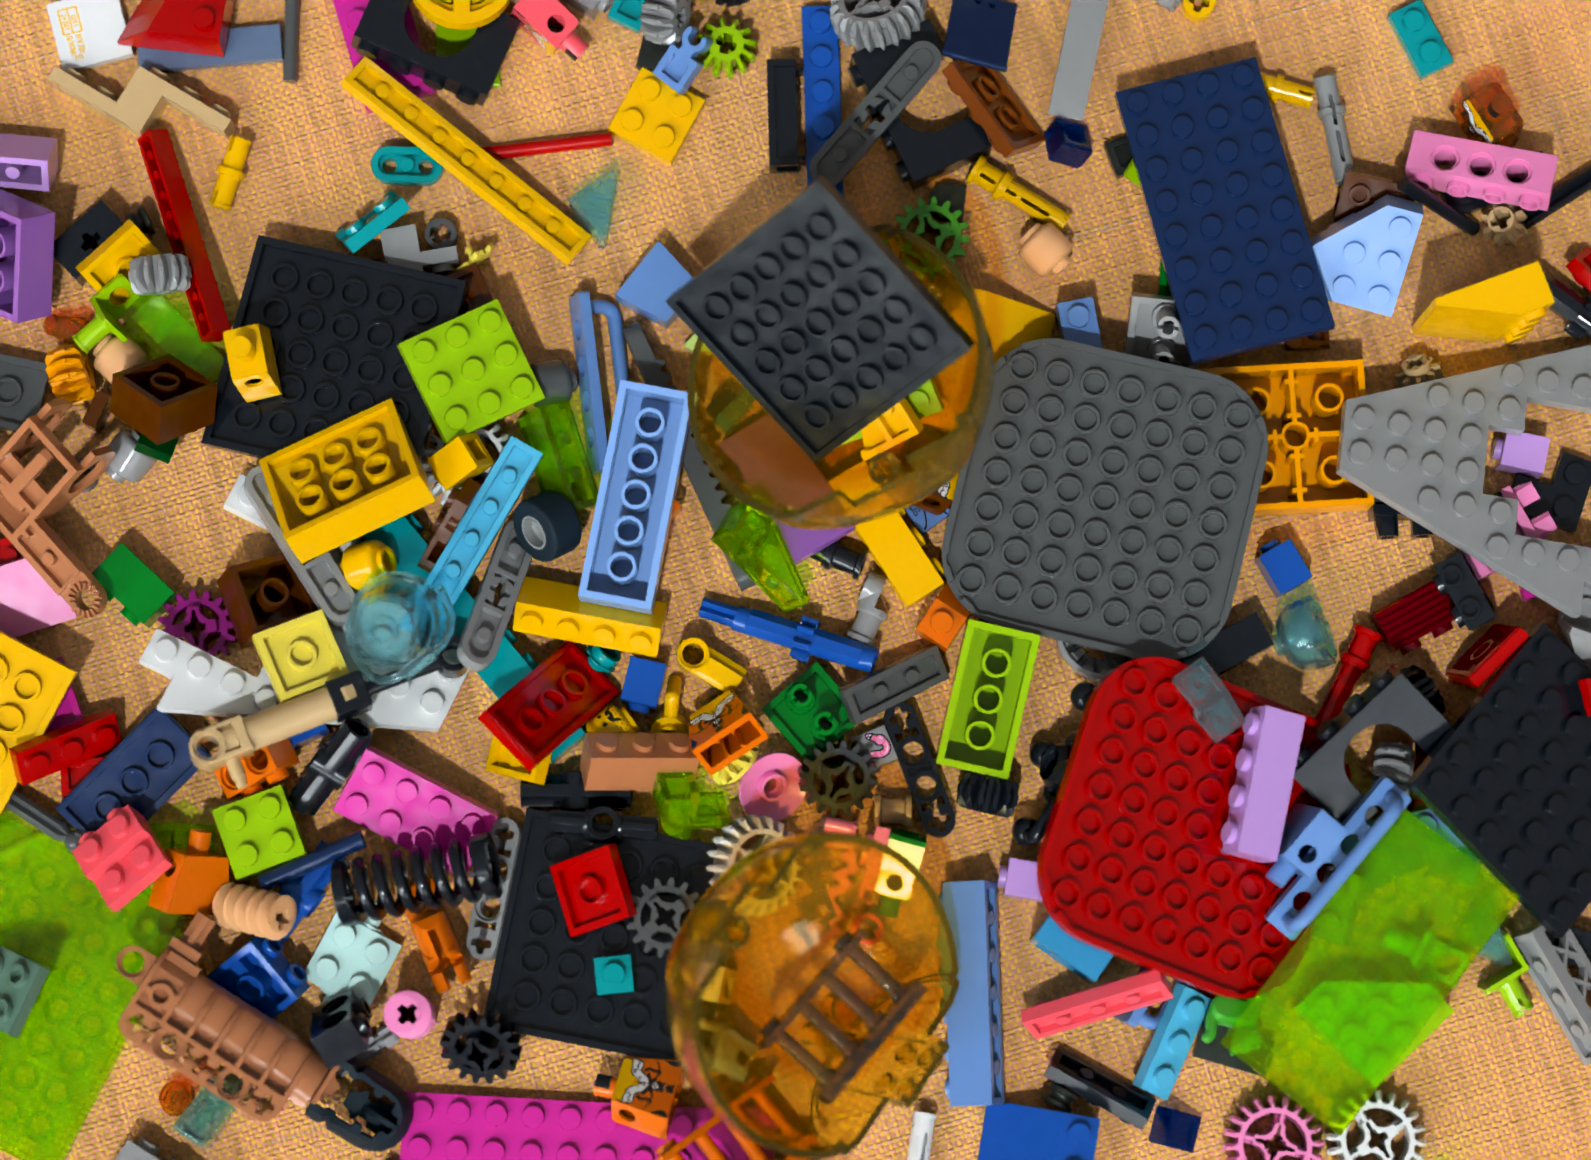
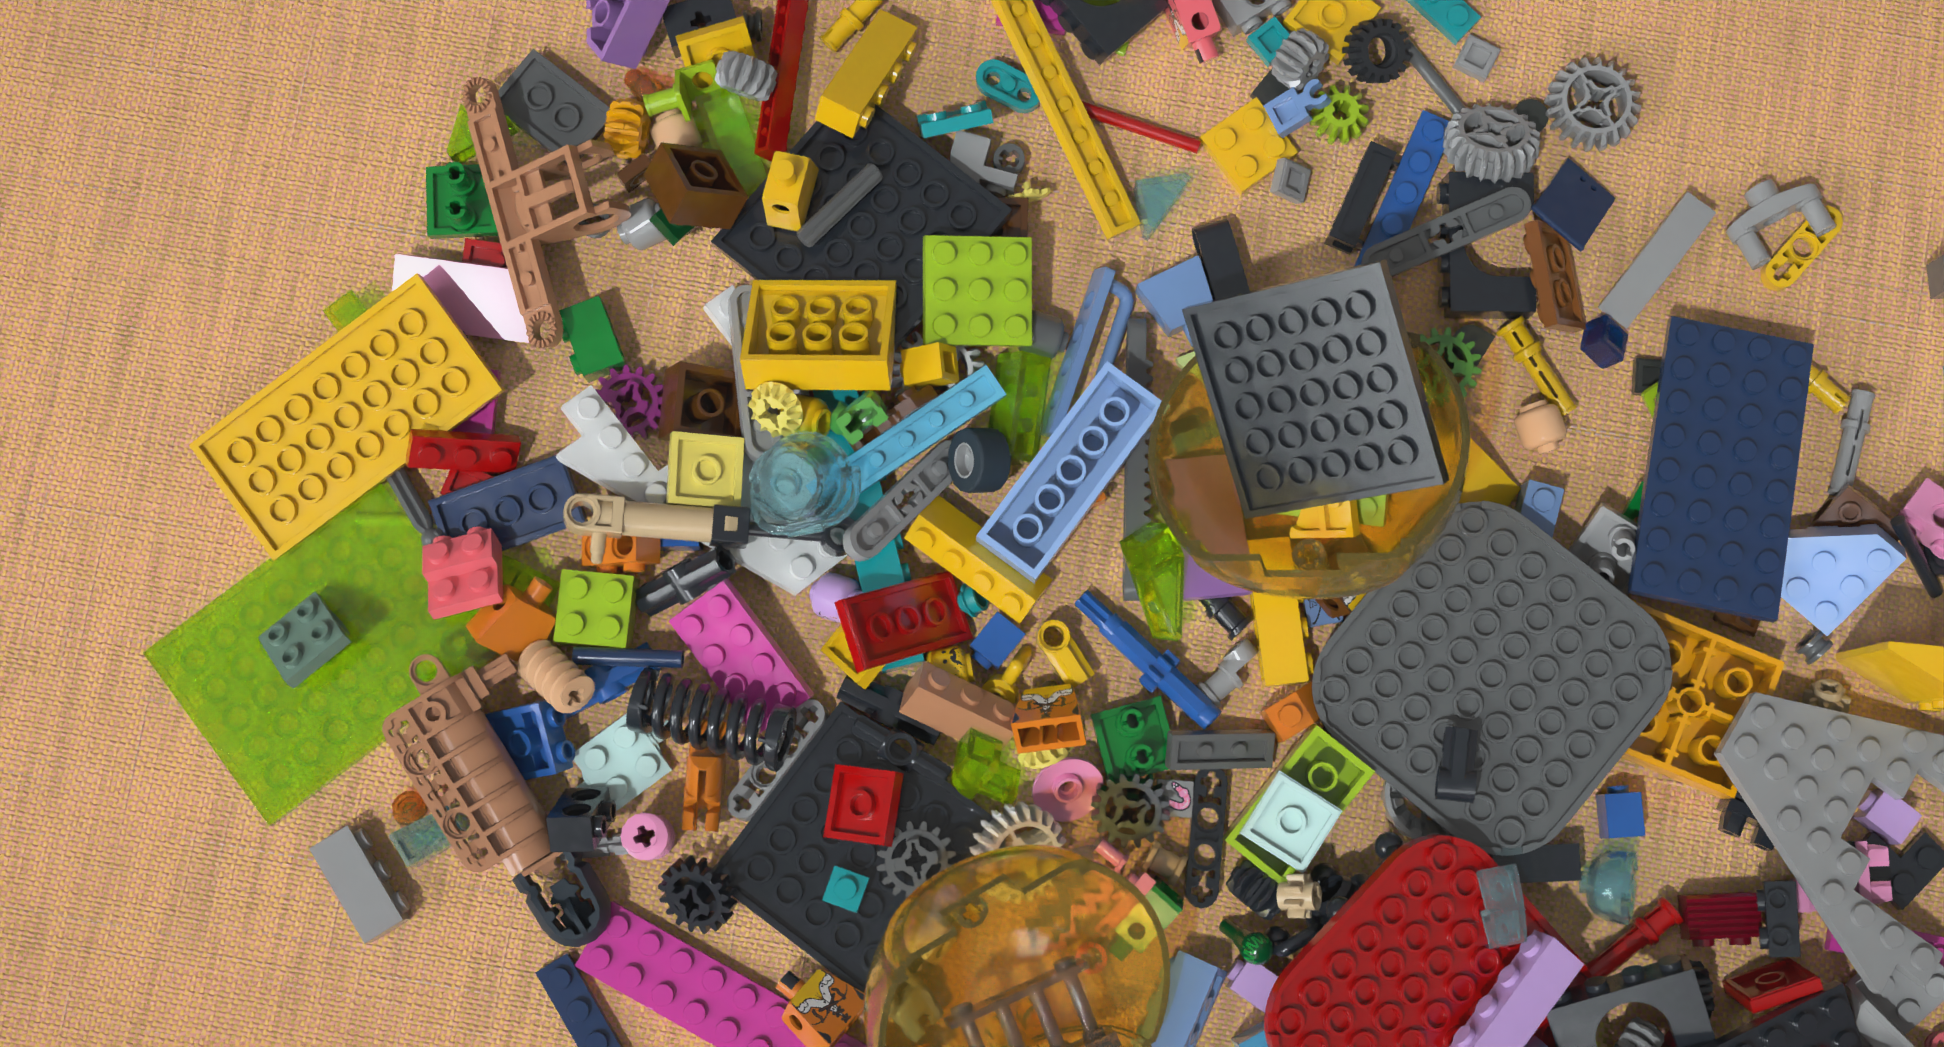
camera: 25 degrees right, 0 degrees up
(271, 218) = (866, 74): none -> yellow brick
(305, 352) = (839, 205): none -> dark grey axle
(335, 556) = (776, 396): none -> light yellow gear
(417, 538) = (859, 415): none -> bright green animal
(466, 711) = (830, 589): none -> lavender head
(681, 235) = (1220, 259): none -> black beam
(710, 130) = (1290, 180): none -> light grey tile
(986, 717) = (1290, 821): none -> light aqua tile
(1007, 845) = (1253, 945): none -> dark green piece
(1025, 780) = (1299, 896): none -> tan gear
(1113, 601) = (1456, 775): none -> black piece
(1386, 332) = (1814, 647): none -> dark grey bush

